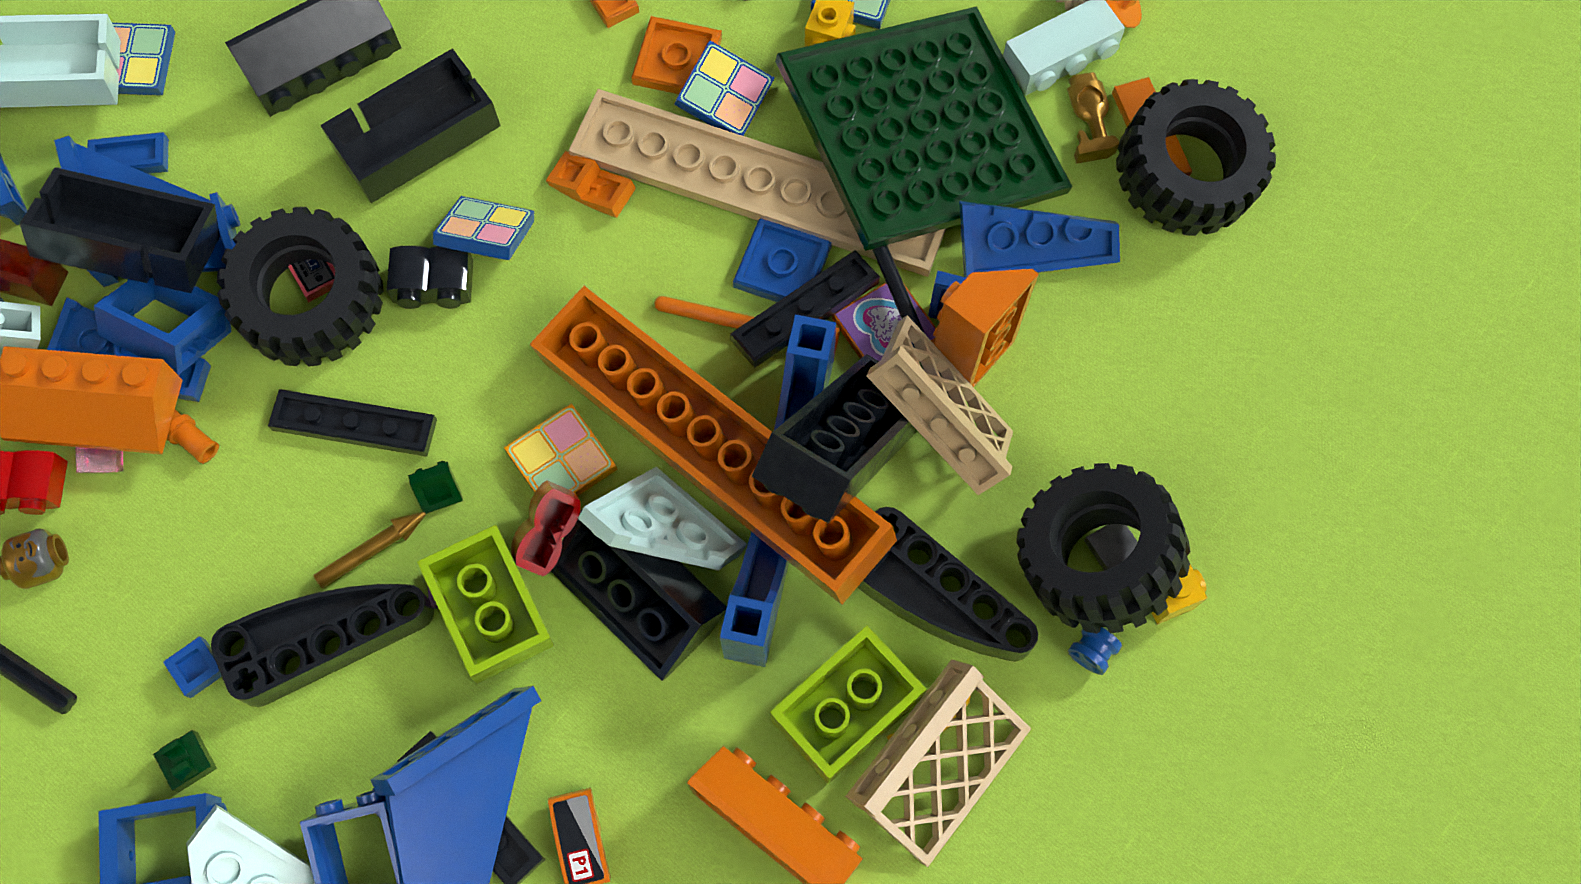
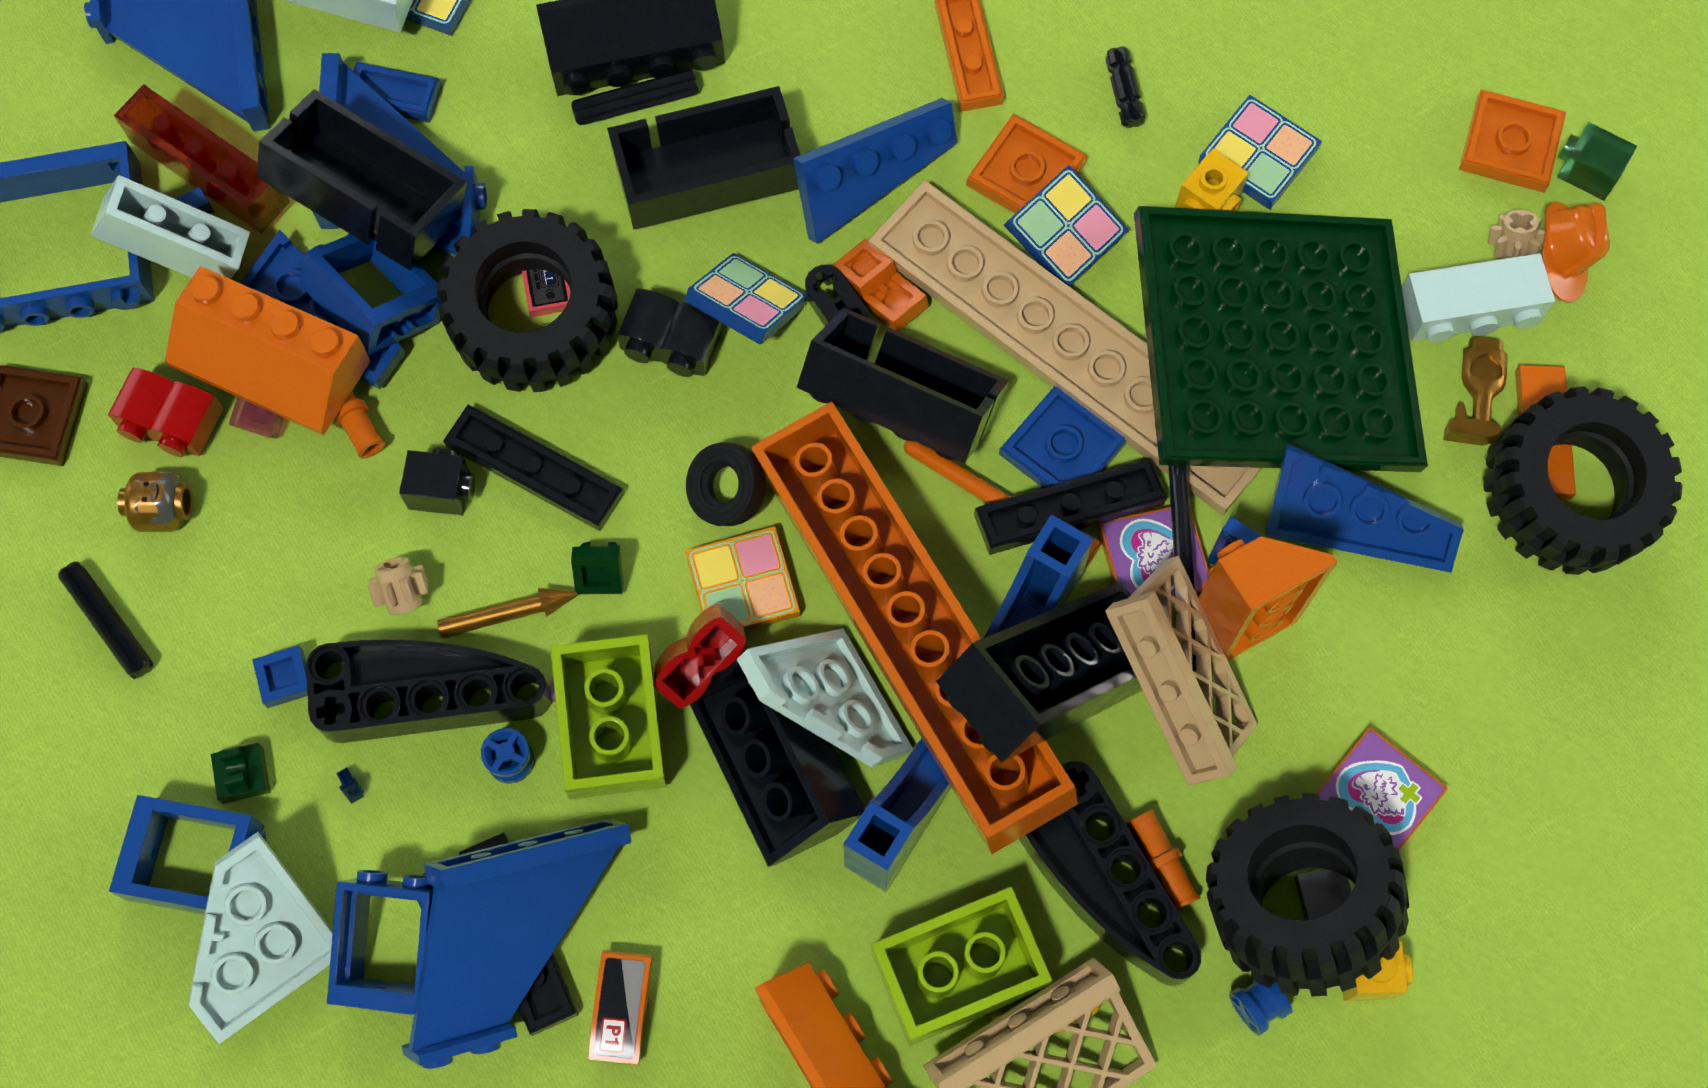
camera: 20 degrees right, 0 degrees up
(269, 557) = (398, 585): none -> tan gear
(273, 461) = (436, 482): none -> black brick
(285, 738) = (350, 786): none -> piece
(335, 97) = (634, 97): none -> black axle
(404, 661) = (499, 749): none -> blue wheel
(497, 386) = (701, 478): none -> black tyre
(545, 92) = (863, 167): none -> blue wing
(565, 204) = (842, 292): none -> black beam
(641, 255) = (909, 388): none -> black piece
(978, 561) = (1163, 859): none -> orange pin
(1128, 440) = (1385, 785): none -> tile

